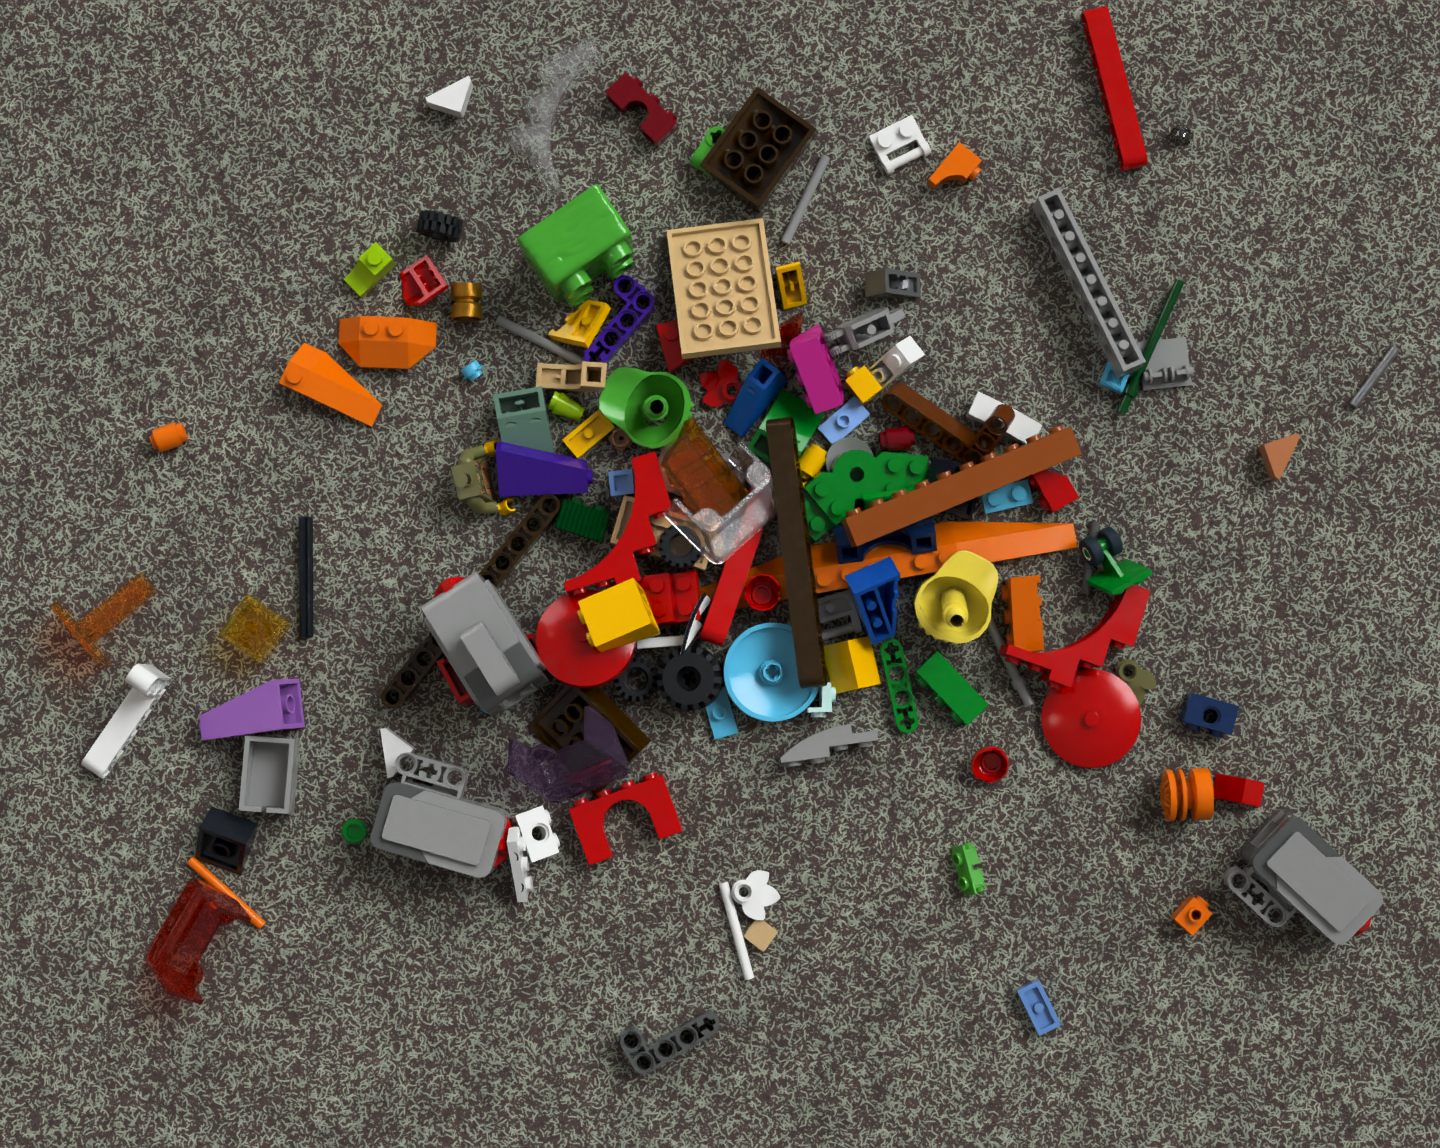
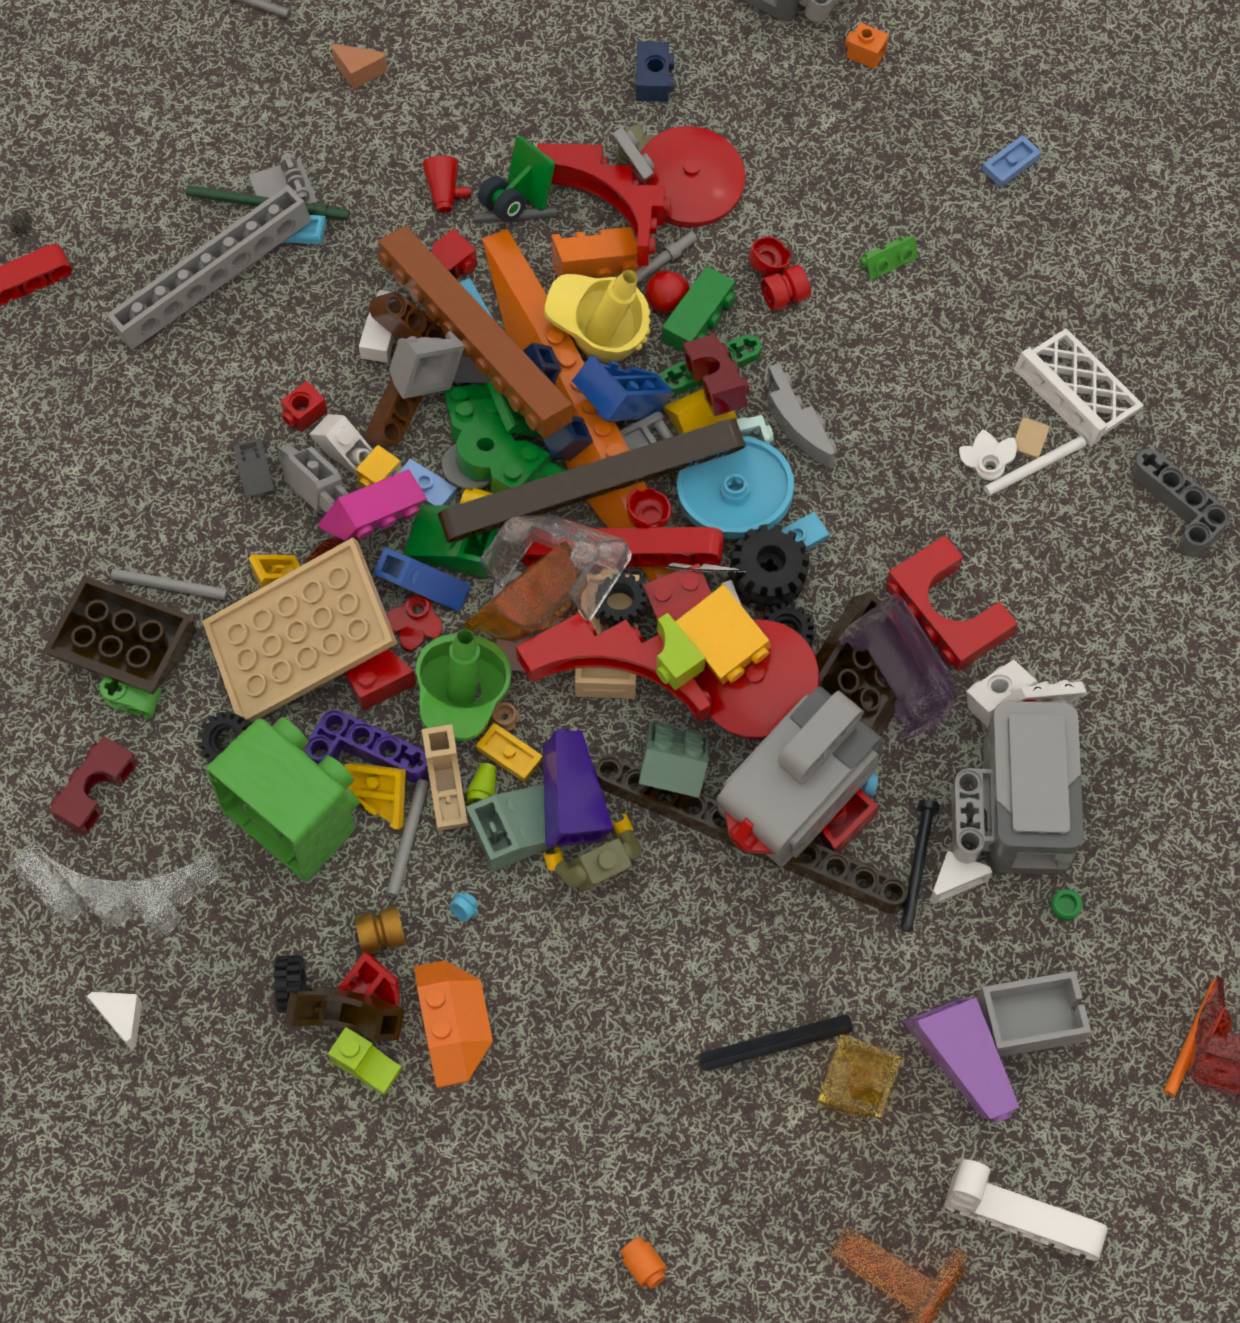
camera: 105 degrees left, 20 degrees down
(225, 840) = (1130, 1050): black slope -> none
(326, 382) = (522, 1082): orange wedge -> none
(408, 264) = (341, 1009): none -> dark brown arch
(424, 730) = (928, 809): none -> black bar
(541, 557) = (674, 759): none -> sand green slope
(583, 520) = (616, 729): dark green brick -> none
(606, 574) = (680, 657): none -> lime arch
(622, 483) = (559, 692): medium blue brick -> none
(649, 206) = (213, 730): none -> black tyre
(787, 976) = (1064, 396): none -> white fence
(893, 679) = (722, 384): none -> dark red arch
(896, 137) = (76, 505): white plate -> none
(896, 439) = (433, 424): dark red brick -> none
(939, 347) = (303, 396): none -> red brick
(940, 439) = (425, 364): none -> light grey brick
(954, 768) = (787, 287): none -> red wheel
(958, 165) = (96, 431): orange arch -> none
(977, 666) = (666, 291): none -> red hair
(1113, 668) = (628, 143): none -> light grey wing
(1133, 500) = (442, 178): none -> red piece
(1180, 794) = (744, 67): orange wheel -> none
(1238, 789) = (724, 35): red slope -> none

